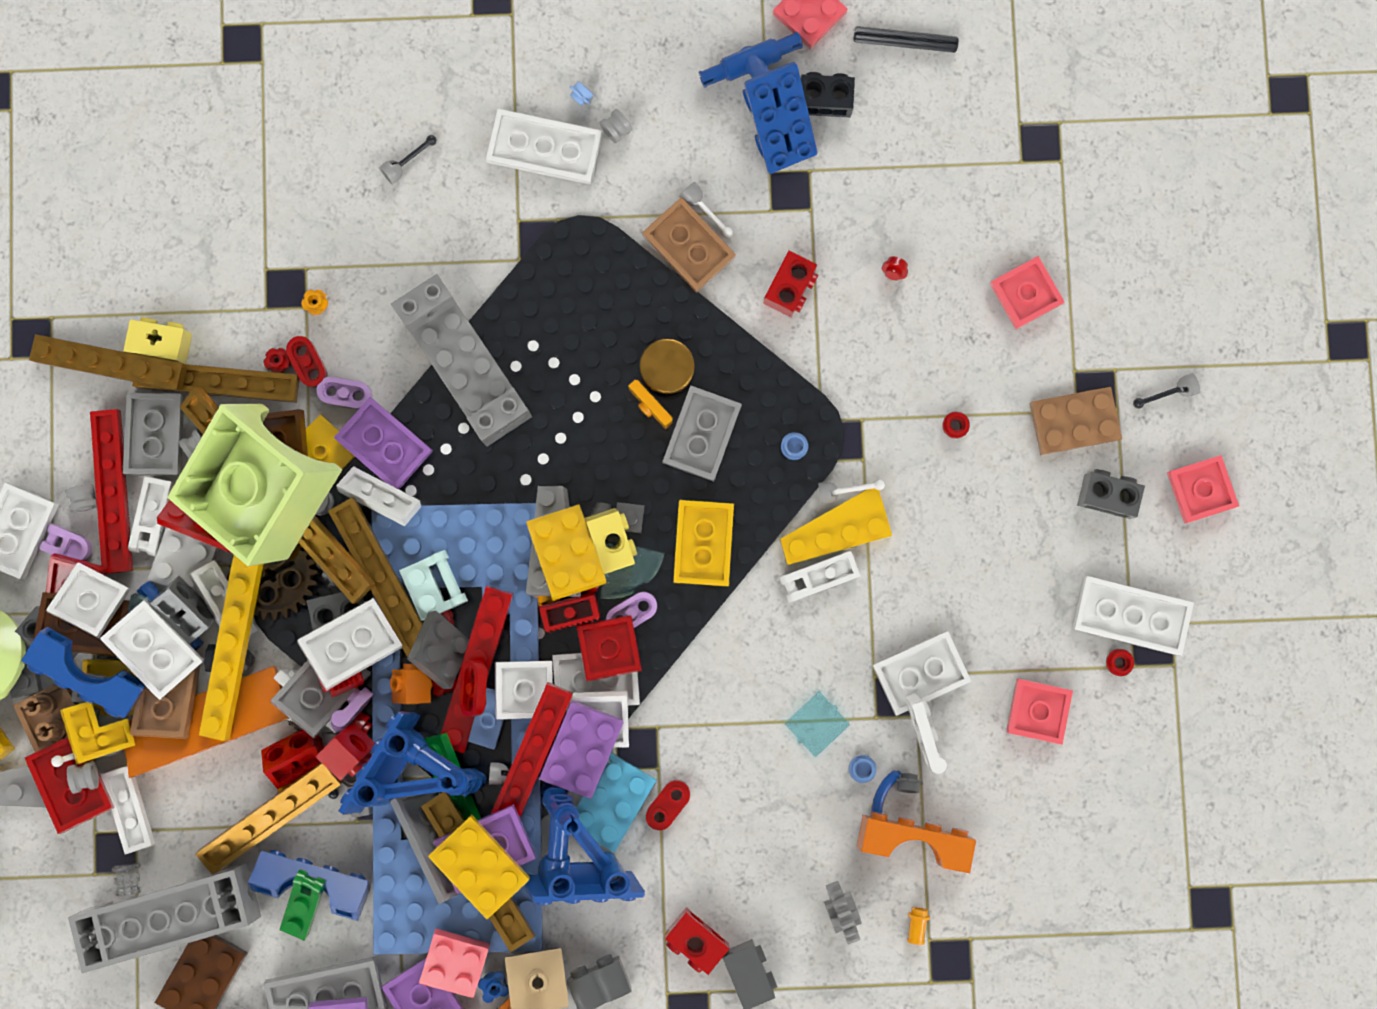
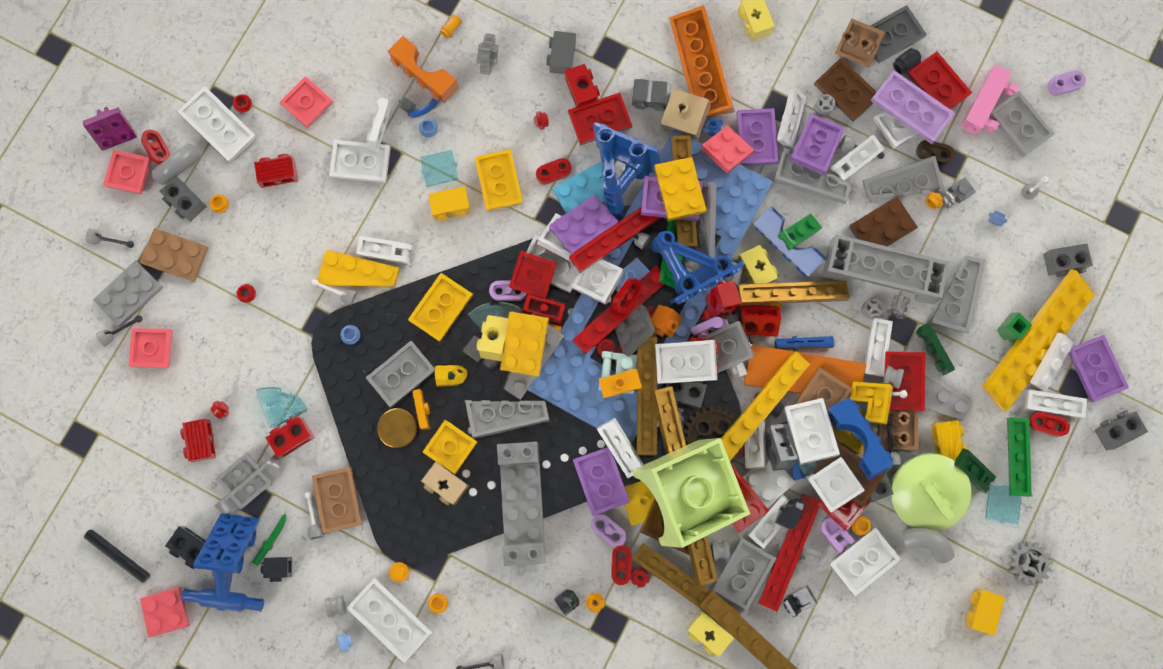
camera: 150 degrees left, 5 degrees down
(38, 572) = (861, 525): none -> light orange plate
(41, 680) = (896, 457): none -> hinge
(52, 849) = (935, 349): none -> dark green plate
(52, 940) = (959, 301): none -> light grey wing
(69, 439) = (799, 601): none -> bracket
(129, 534) = (790, 513): none -> black rock
(154, 861) = (875, 305): none -> light grey wheel
(251, 745) = (804, 343): none -> blue pin
(347, 283) = (567, 601): none -> black rock
(348, 829) = (758, 257): none -> light yellow brick
(419, 570) = (620, 383): none -> light orange plate
(467, 612) = (606, 345): none -> red plate
(499, 197) = (438, 603): none -> light orange plate
(551, 451) = (498, 417): none -> light grey wing
(554, 338) = (432, 484): none -> tan brick
(566, 205) = (399, 572): none -> light orange plate
(589, 380) = (450, 447): none -> yellow plate
(641, 466) = (450, 375): none -> yellow rock
(645, 921) = (606, 111): none -> red plate
(710, 129) = (276, 568): none -> black brick
(722, 863) = (541, 120): none -> red plate
(730, 751) = (498, 180): none -> yellow plate
(739, 151) = (268, 545): none -> green piece
(773, 682) = (449, 203): none -> yellow brick
(810, 204) = (245, 481): none -> light grey plate
(827, 315) = (279, 406): none -> clear light blue brick
(896, 218) = (198, 440): none -> red brick
(1019, 598) = (275, 171): none -> red brick
(1063, 516) = (219, 203): none -> light orange plate
(1089, 275) = (106, 336): none -> hinge
(1099, 342) = (128, 293): none -> light grey plate
(1148, 533) = (175, 164): none -> light grey cylinder
(1189, 539) = (155, 149): none -> red plate
(1262, 529) = (109, 128): none -> magenta plate

